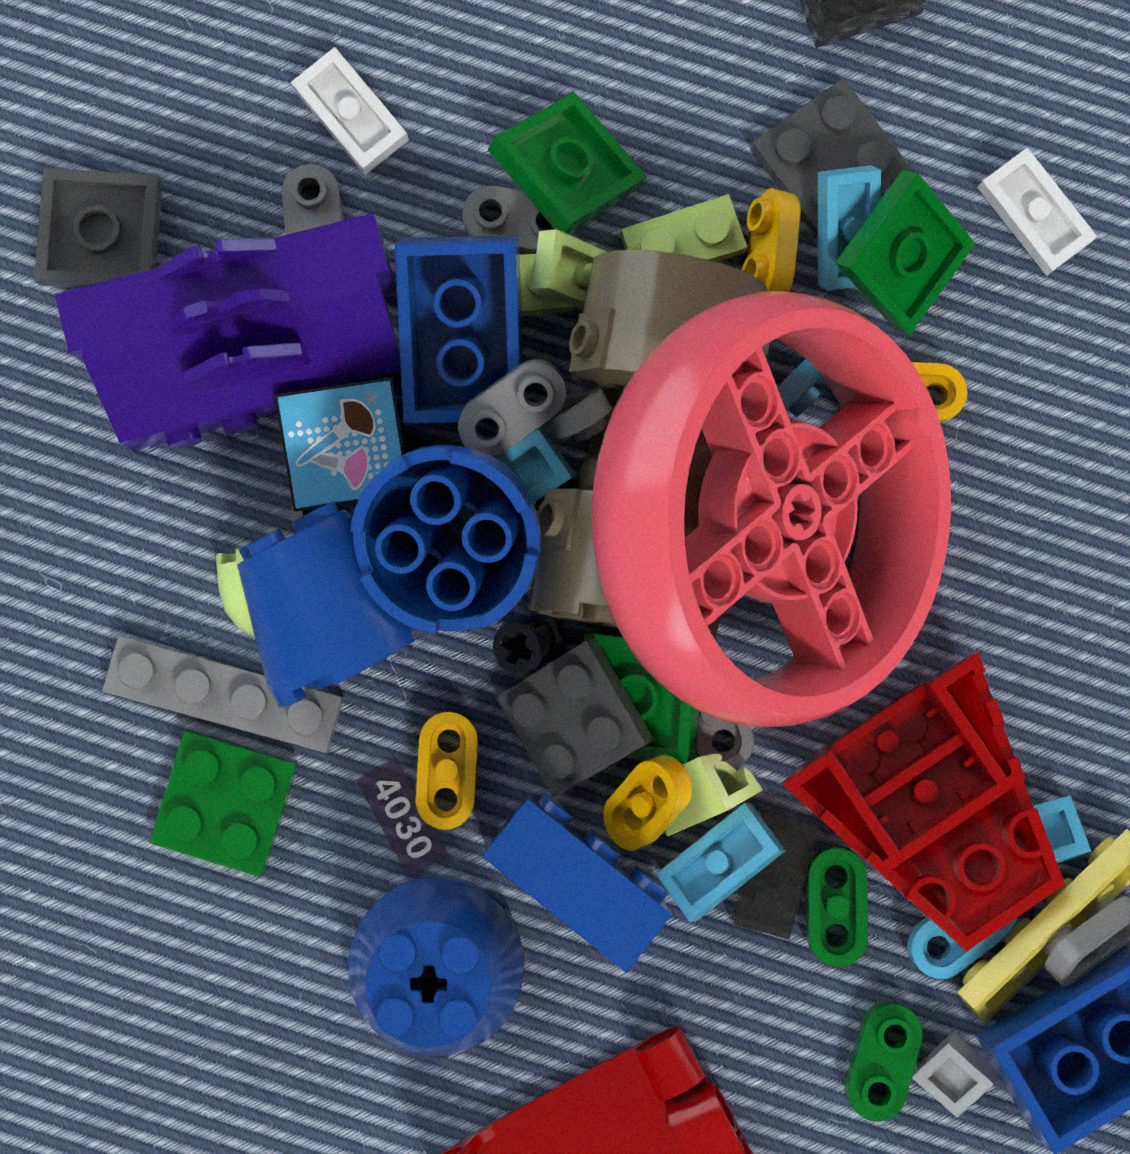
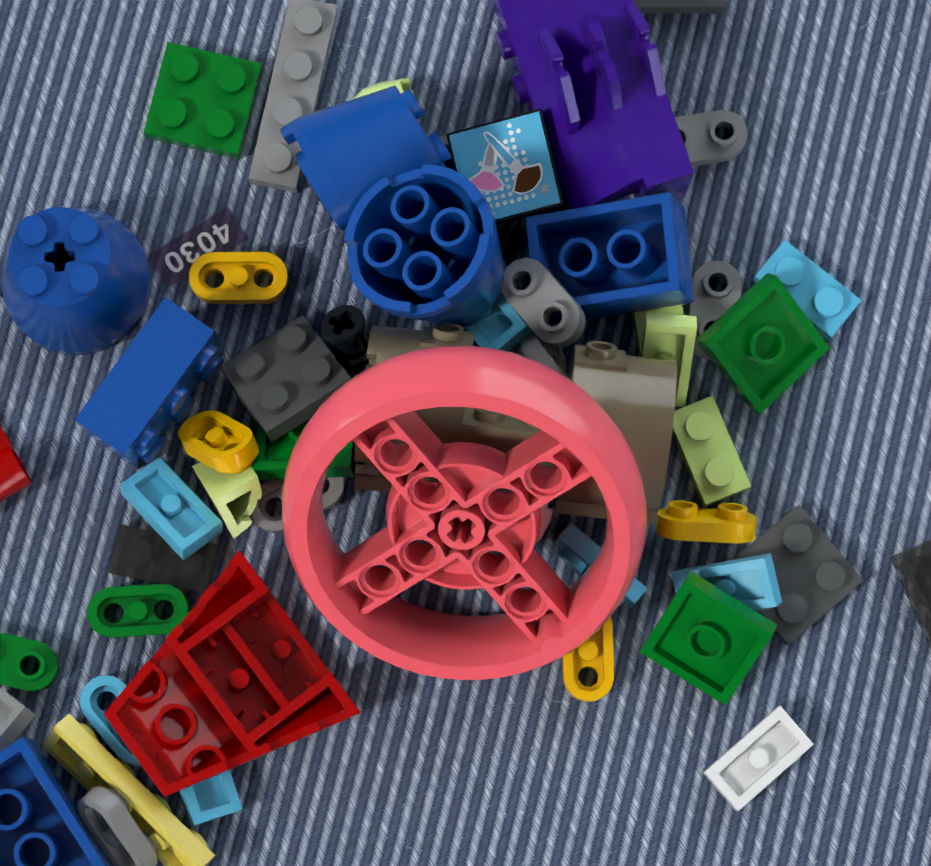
camera: 90 degrees right, 5 degrees down
(349, 111) = (795, 161): white plate -> none
(506, 101) = (813, 289): none -> medium azure plate

